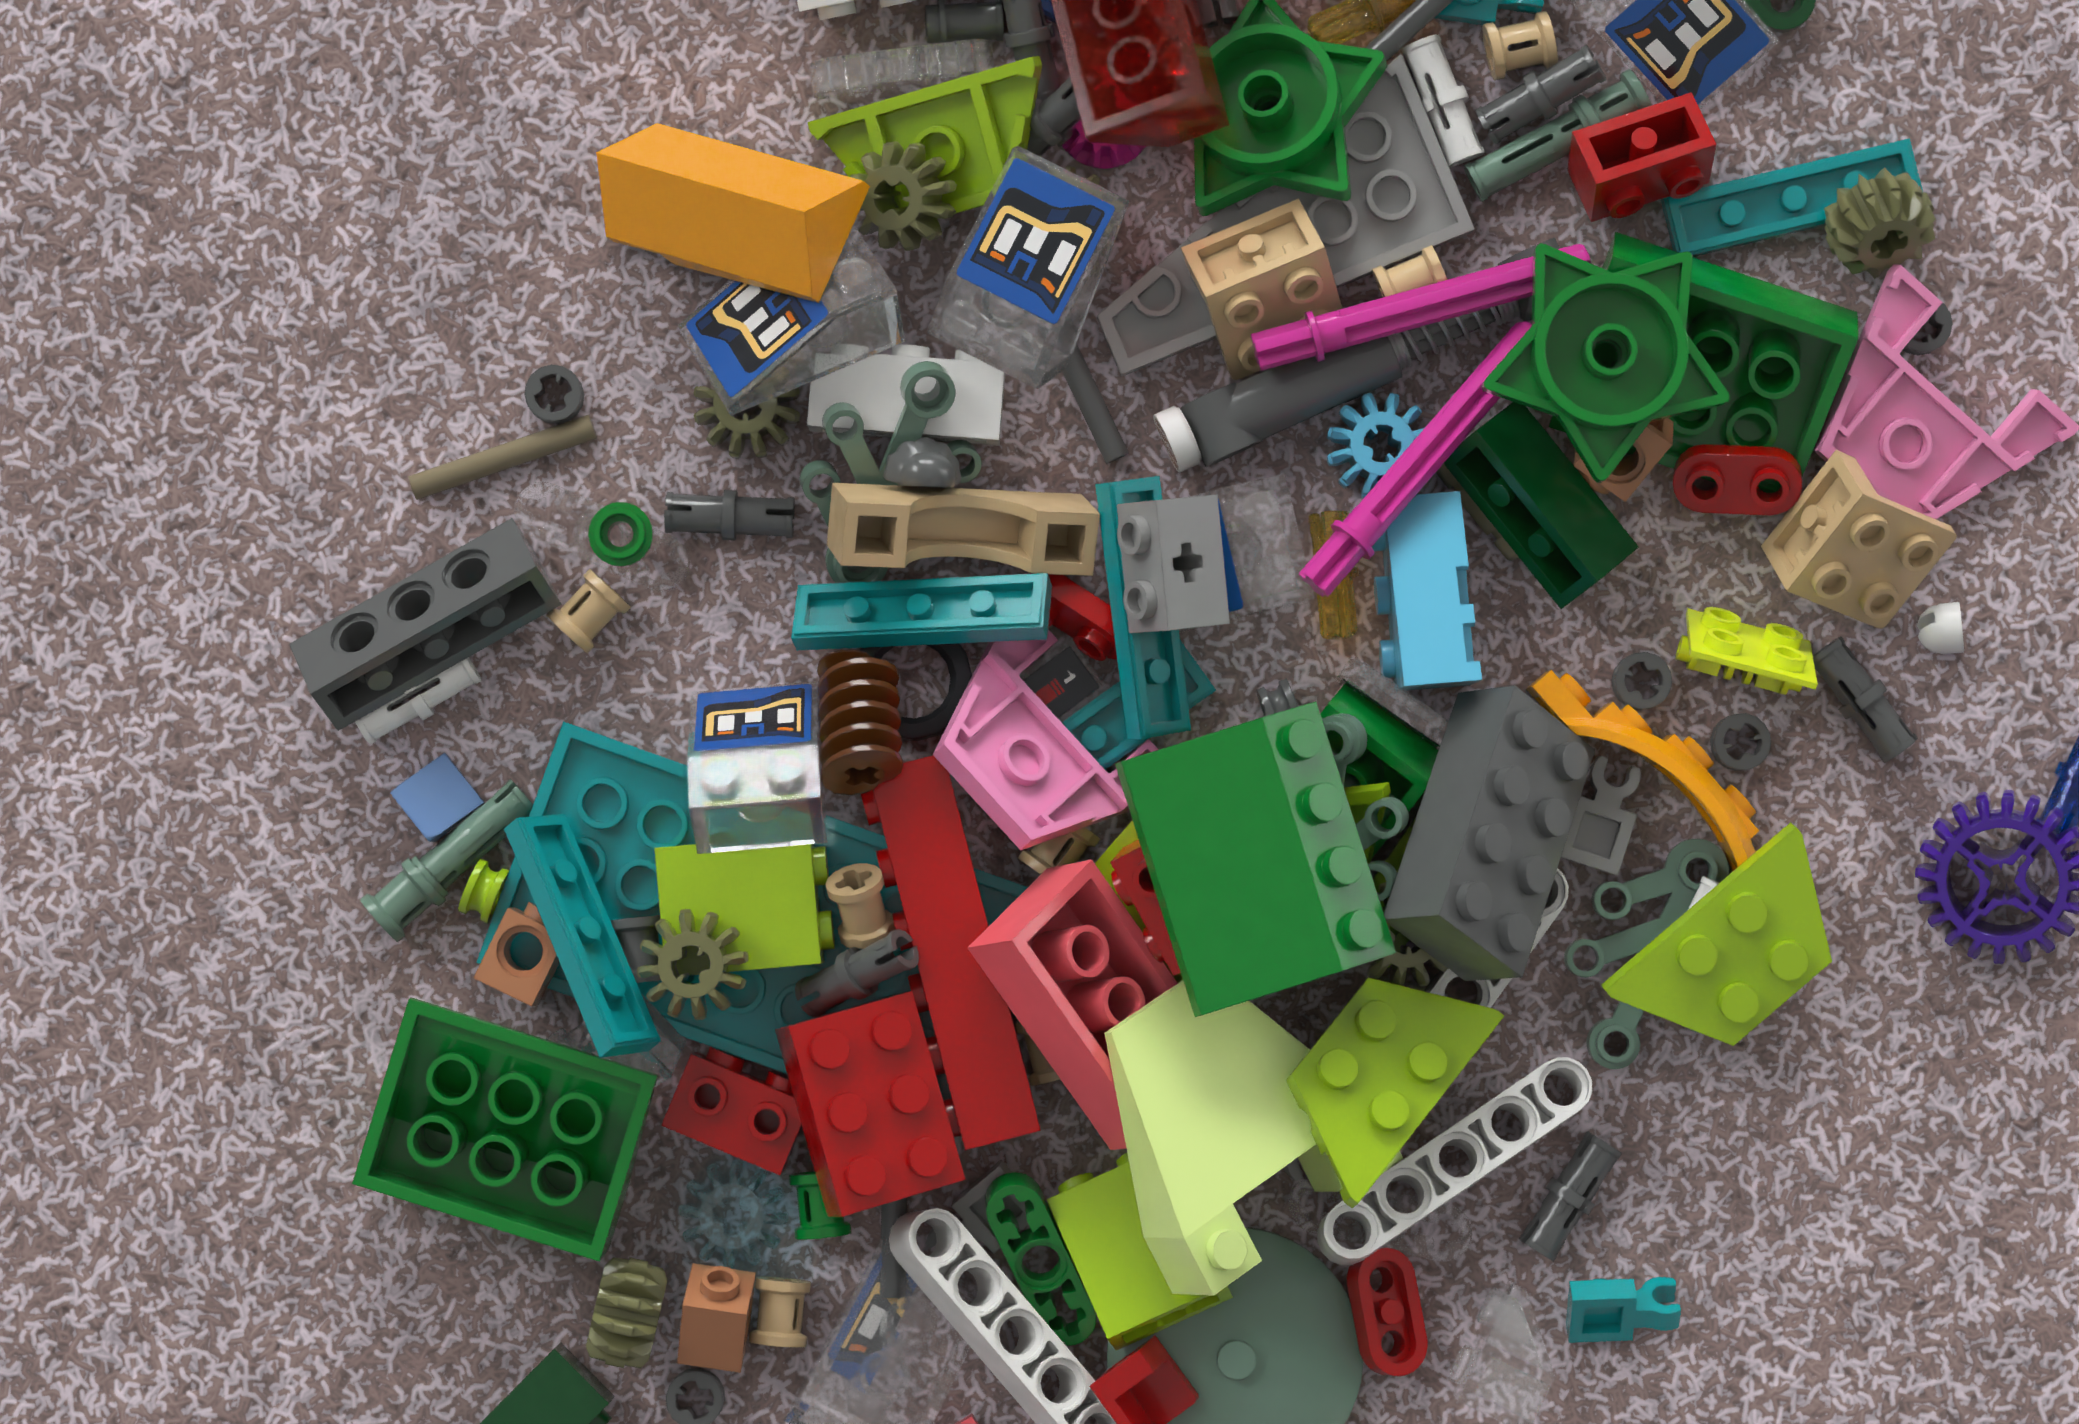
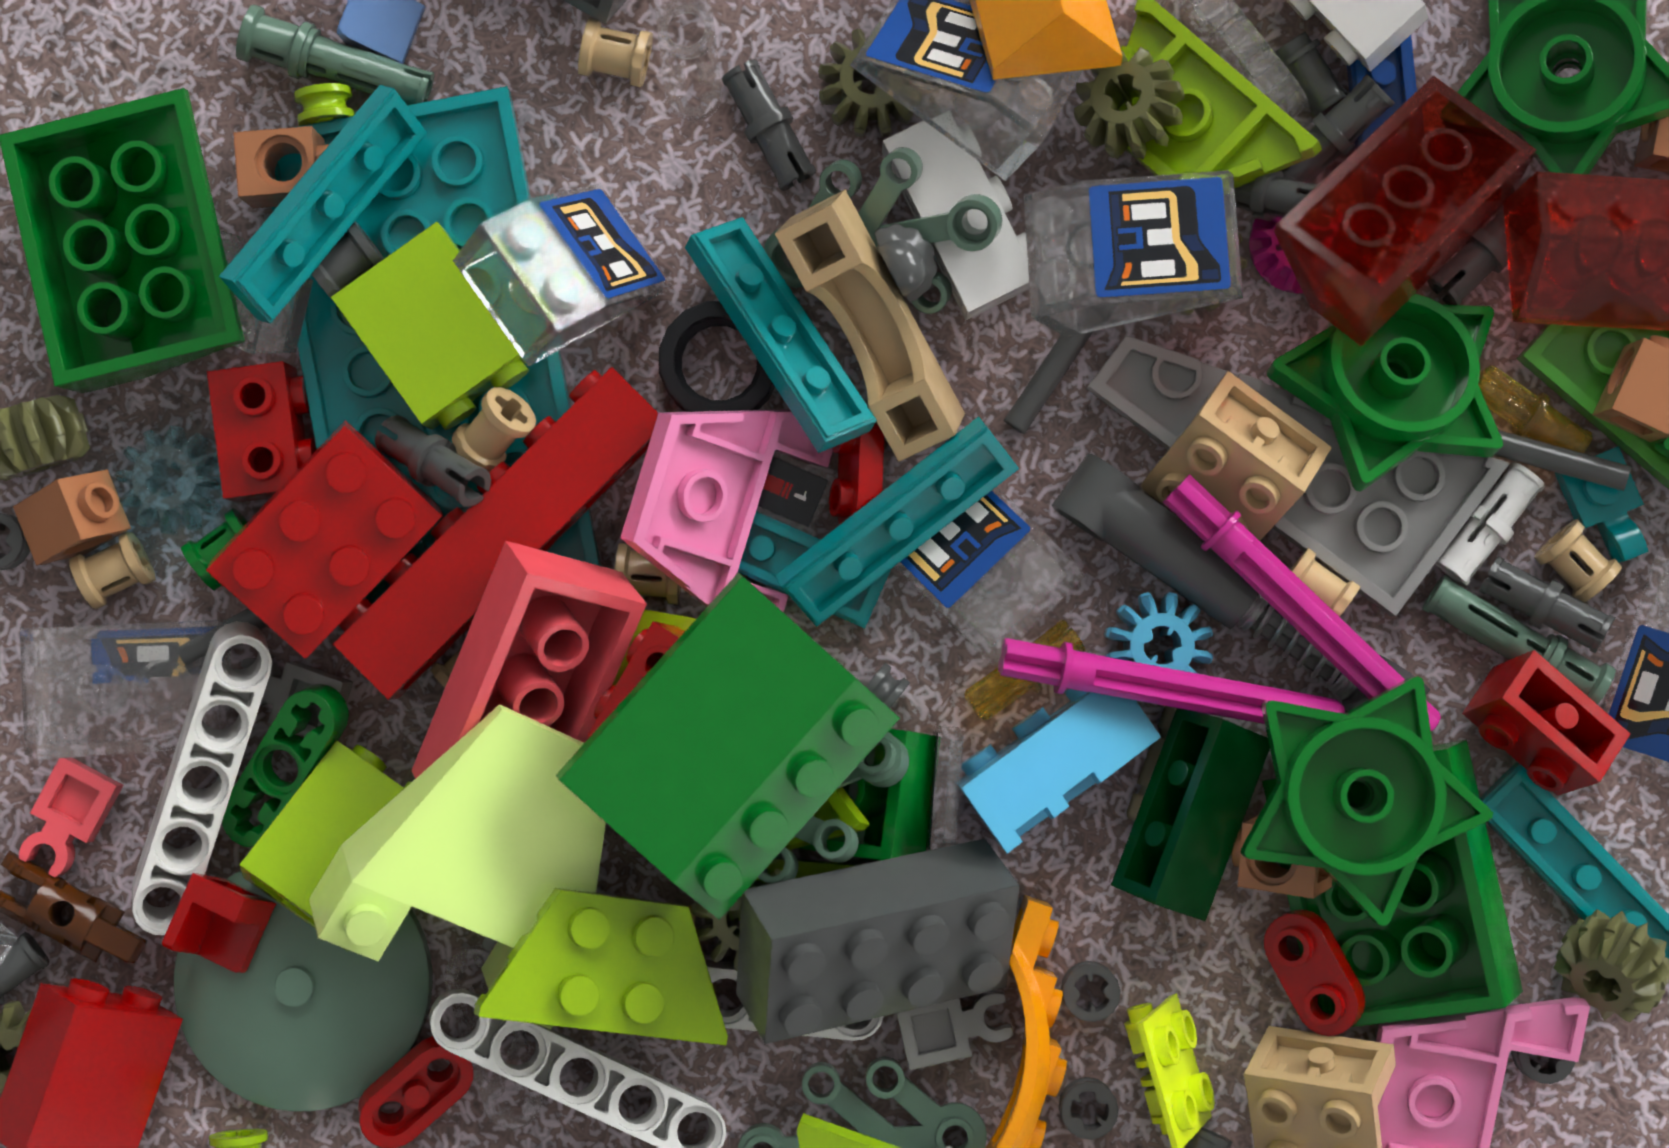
camera: 60 degrees right, 0 degrees up
(601, 527) = (695, 19): green plate -> none
(709, 979) = (362, 287): olive gear -> none
(858, 721) = (647, 331): reddish brown piece -> none
(1172, 564) = (948, 523): light grey brick -> none
(1177, 438) = (1061, 467): white tile -> none

